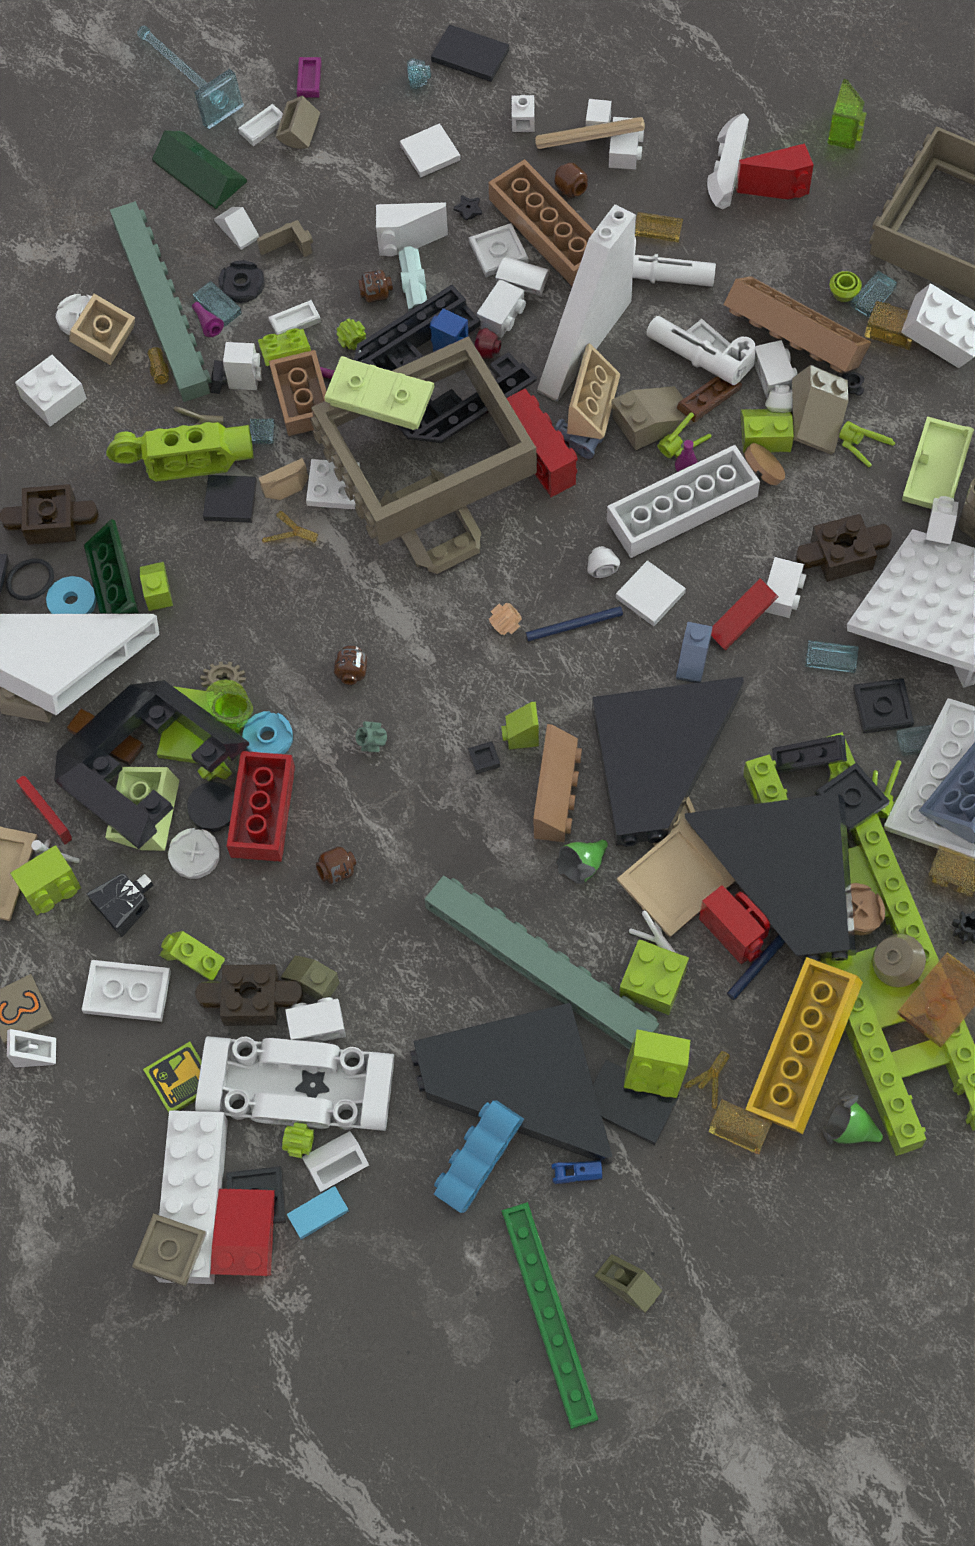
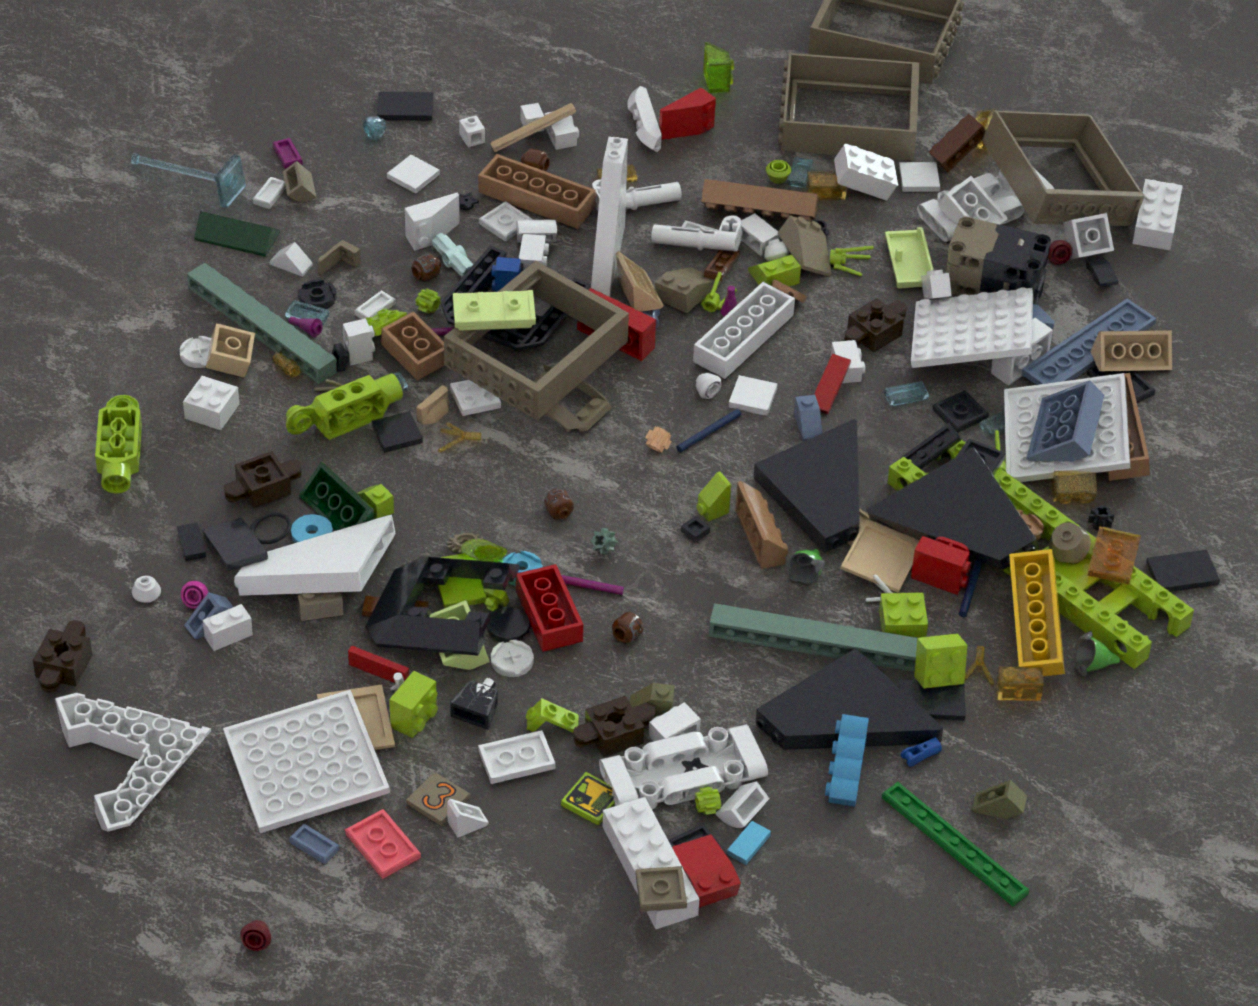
camera: 30 degrees left, 20 degrees down
(326, 783) = (593, 585): none -> magenta bar

